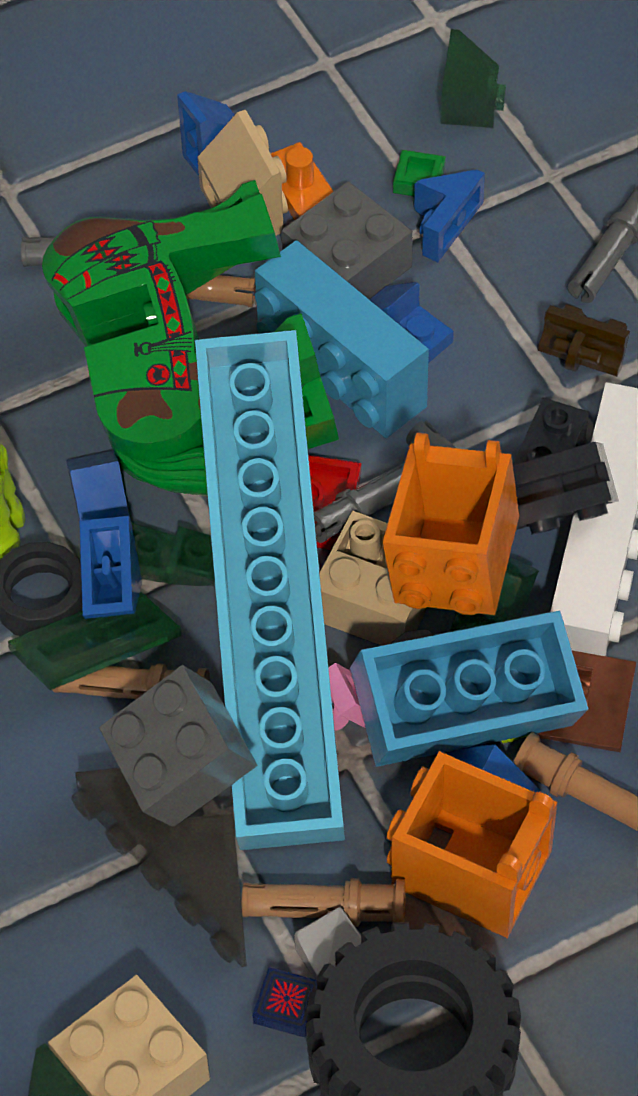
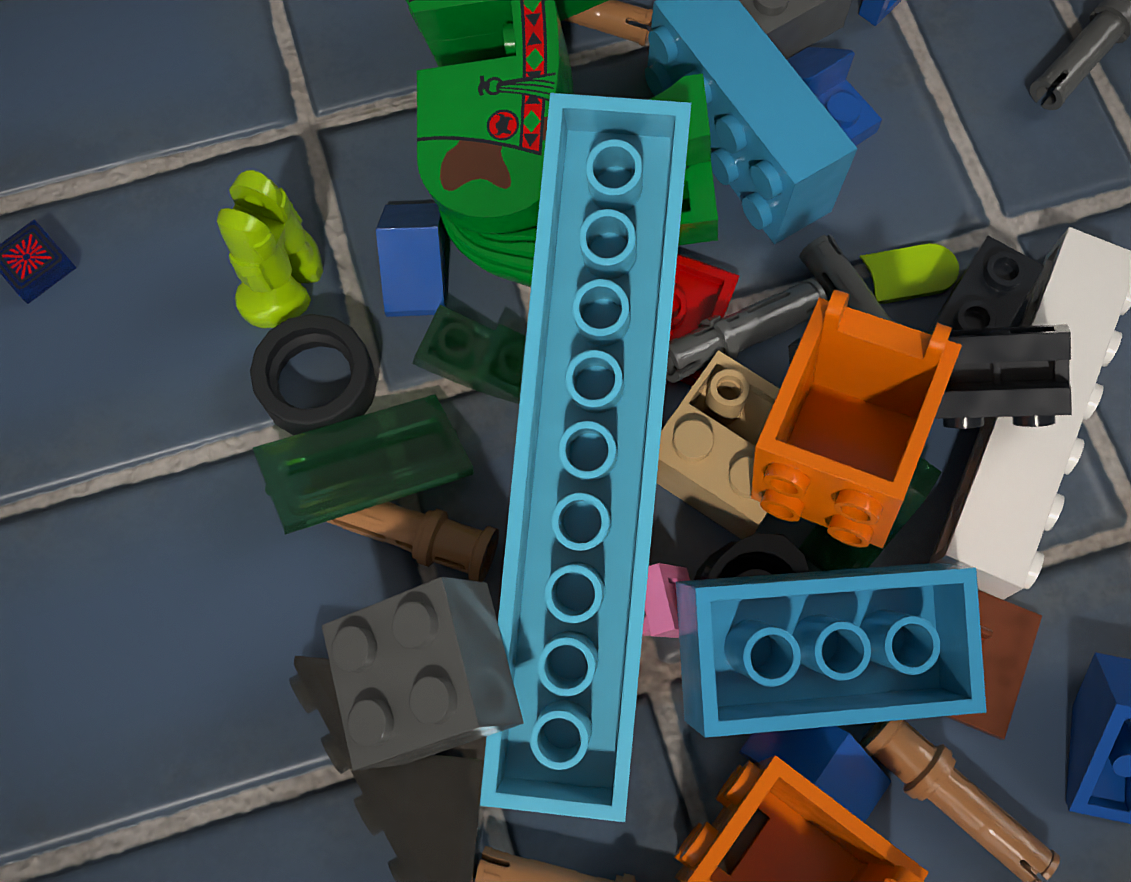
camera: 10 degrees right, 15 degrees up
(109, 567) = (398, 371): blue slope -> none
(508, 431) = (911, 272): none -> lime piece
(584, 340) = (1044, 160): dark brown hips -> none

